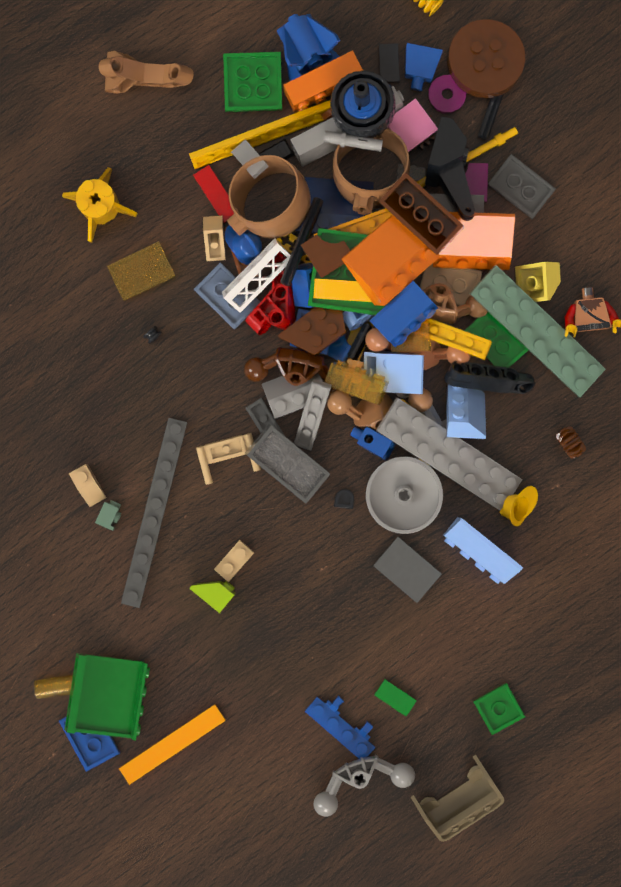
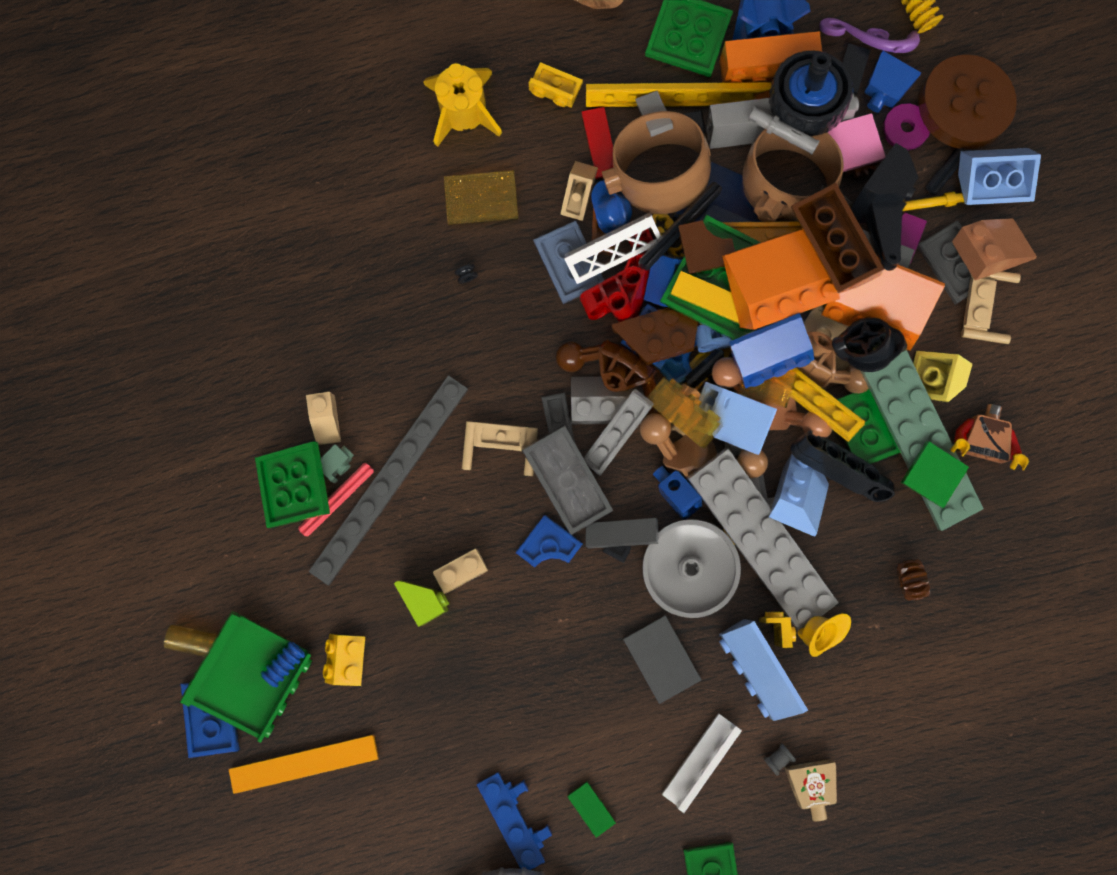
camera: 20 degrees right, 5 degrees down
(84, 544) = (292, 485): none -> green plate
(120, 542) = (338, 497): none -> coral axle
(129, 678) = (282, 665): none -> blue piece
(165, 161) = (555, 85): none -> yellow bracket
(172, 658) = (344, 660): none -> yellow bracket
(291, 514) = (547, 542): none -> blue tile
(343, 488) = (622, 533): none -> dark grey tile
(398, 33) = (873, 37): none -> medium lavender plant
(462, 633) = (701, 762): none -> white fence
(480, 282) = (869, 344): none -> black piece
(488, 515) = (783, 632): none -> yellow bracket
(519, 610) = (779, 759): none -> dark grey bush
(529, 108) = (998, 175): none -> light blue slope
(544, 166) = (992, 247): none -> nougat slope
(550, 212) = (980, 307): none -> tan plate
(551, 620) = (814, 786): none -> tan torso
(559, 358) = (934, 474): none -> green tile

